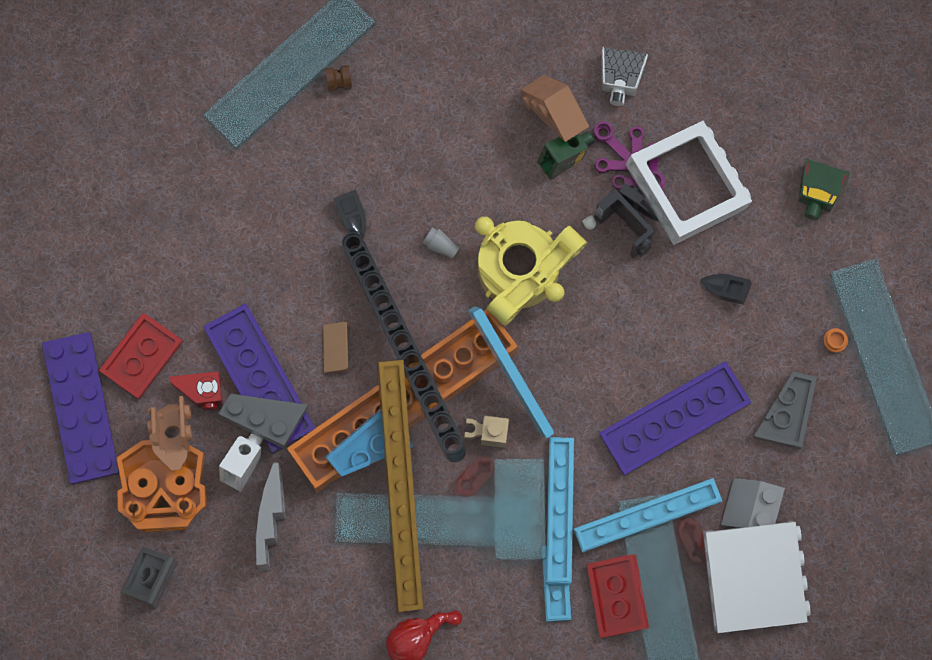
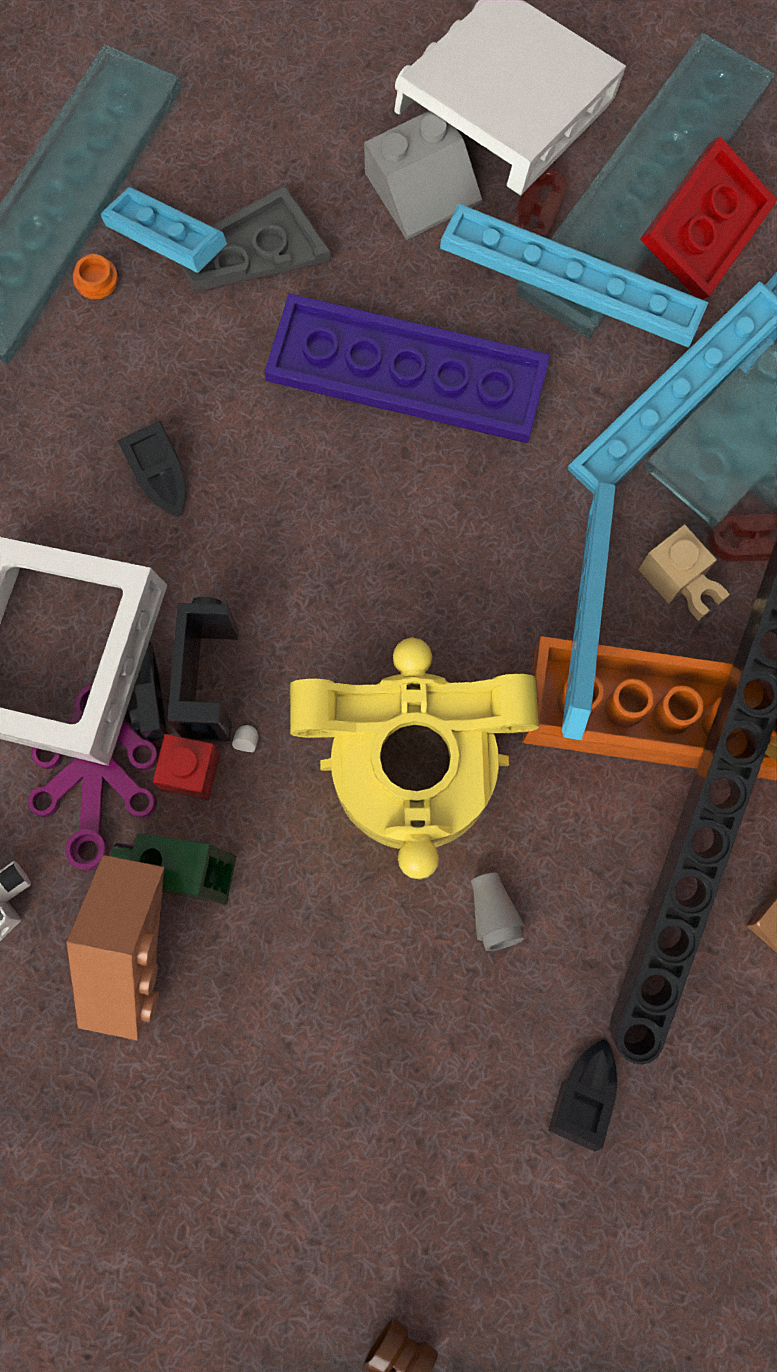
camera: 135 degrees left, 0 degrees up
(596, 188) = (186, 767): none -> red brick
(828, 381) = (164, 229): none -> medium azure tile

